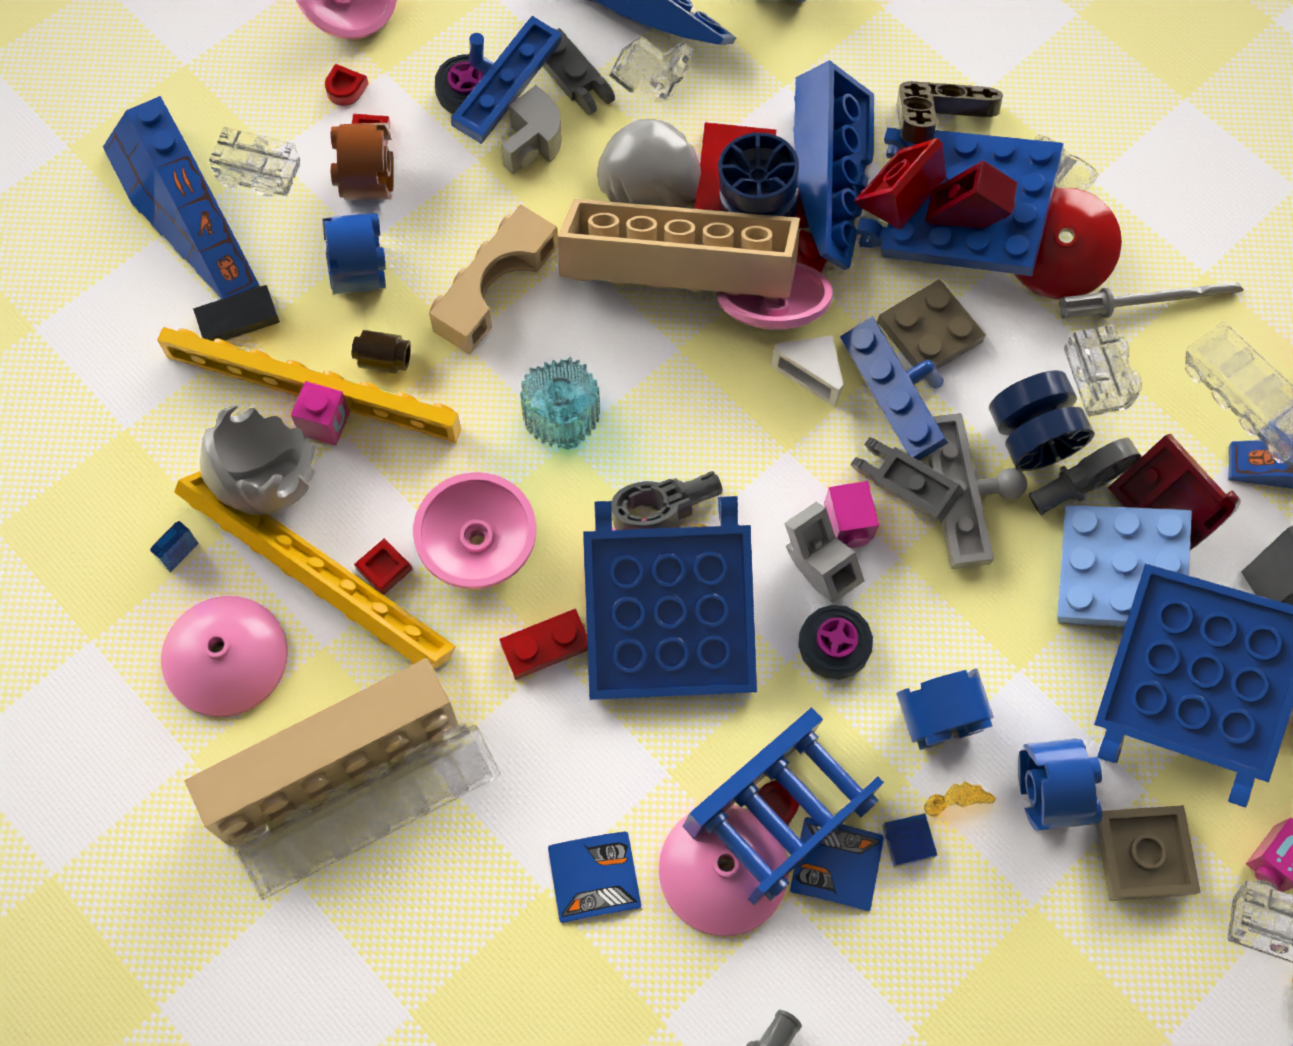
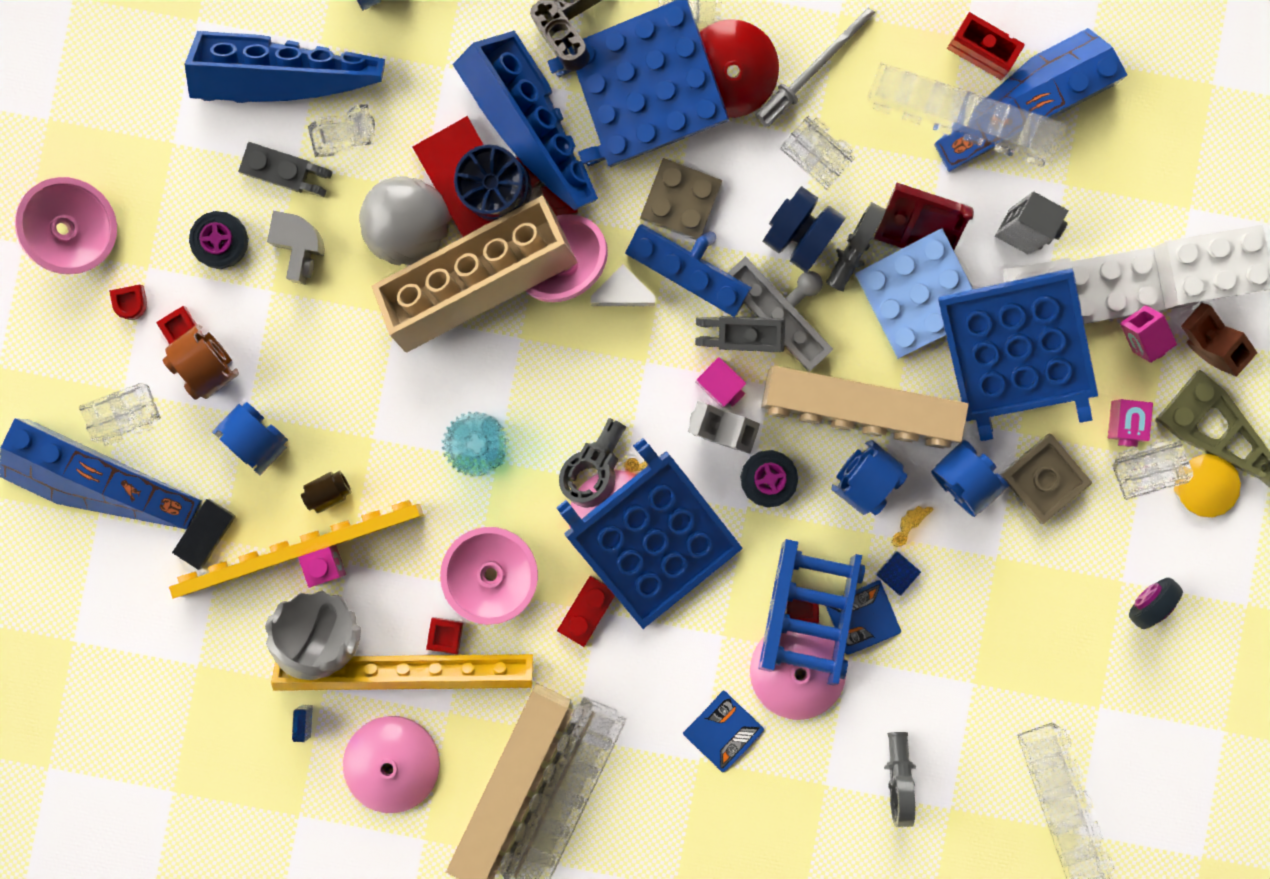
camera: 35 degrees left, 20 degrees up
(504, 78) = (246, 221): blue plate -> none
(520, 244) = (356, 340): tan arch -> none
(904, 183) = (591, 108): red slope -> none
(973, 198) = (653, 95): dark red slope -> none
(990, 629) = (865, 406): none -> tan brick

